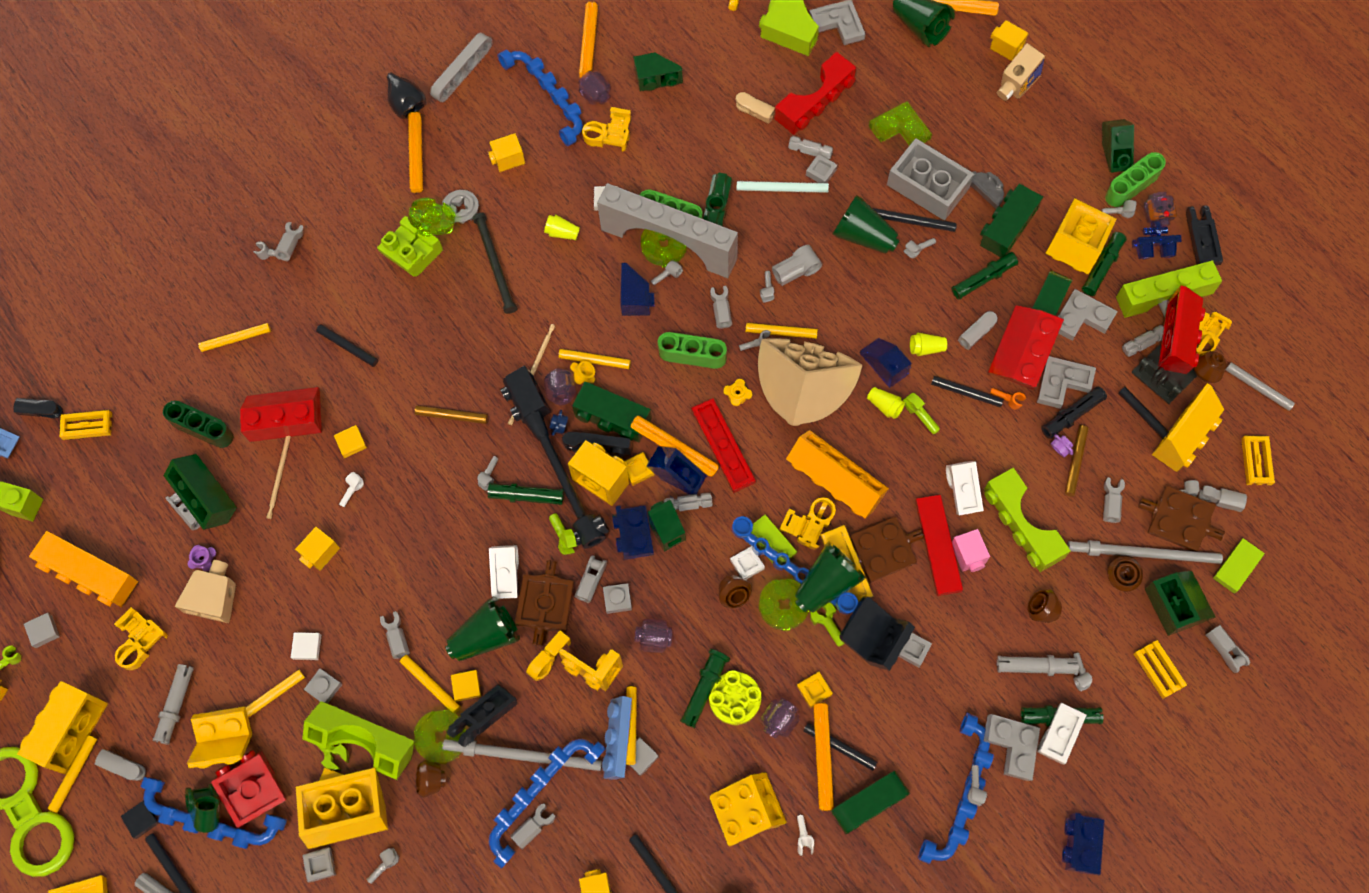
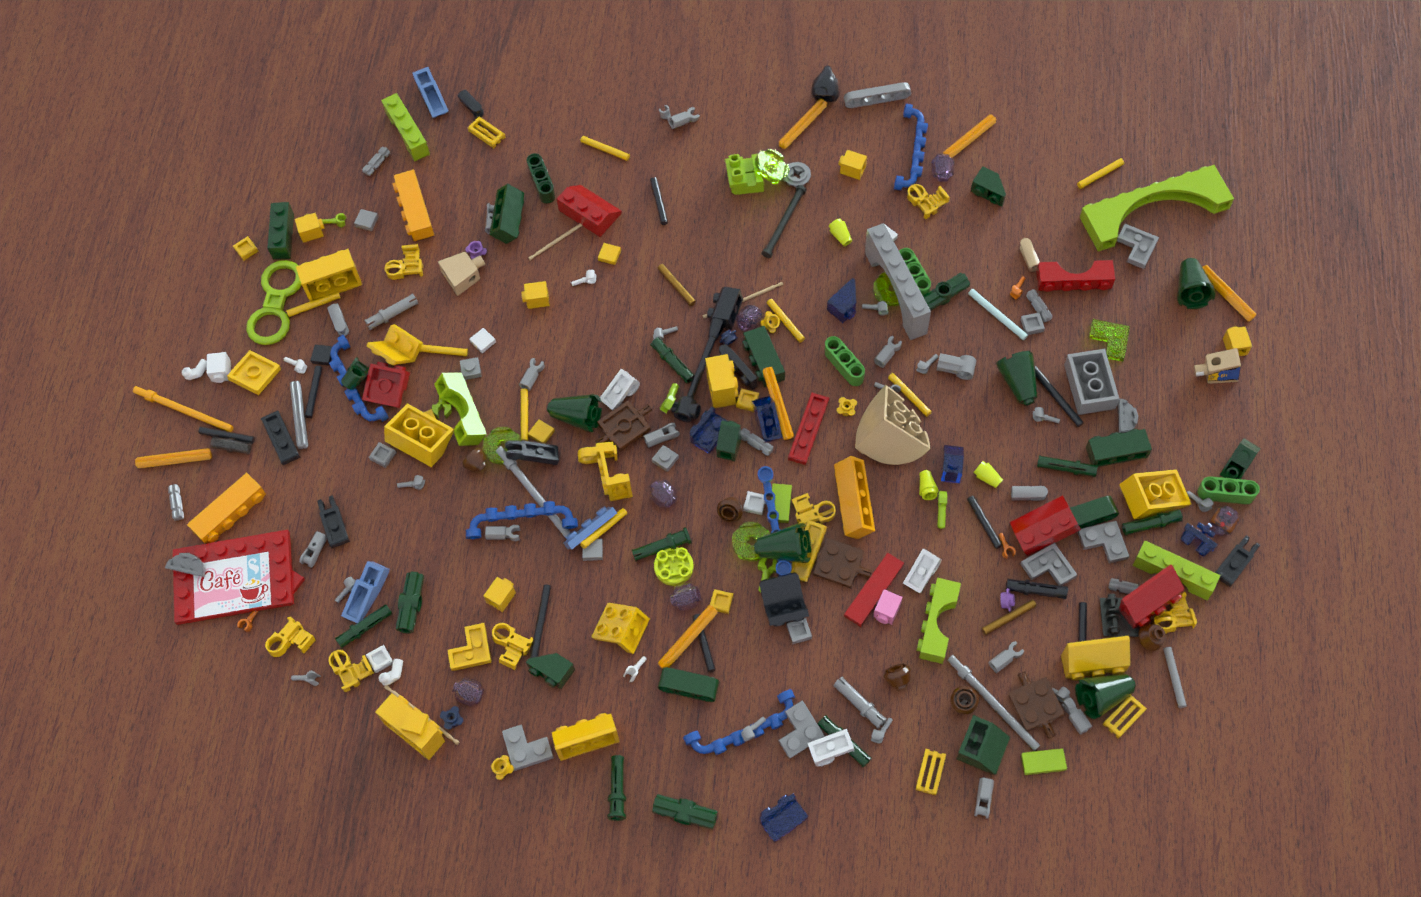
camera: 45 degrees right, 5 degrees down
(126, 854) = (300, 366): none -> white hand
(777, 152) = (1016, 291): none -> orange hand
(1227, 457) = (1103, 693): none -> dark green cone

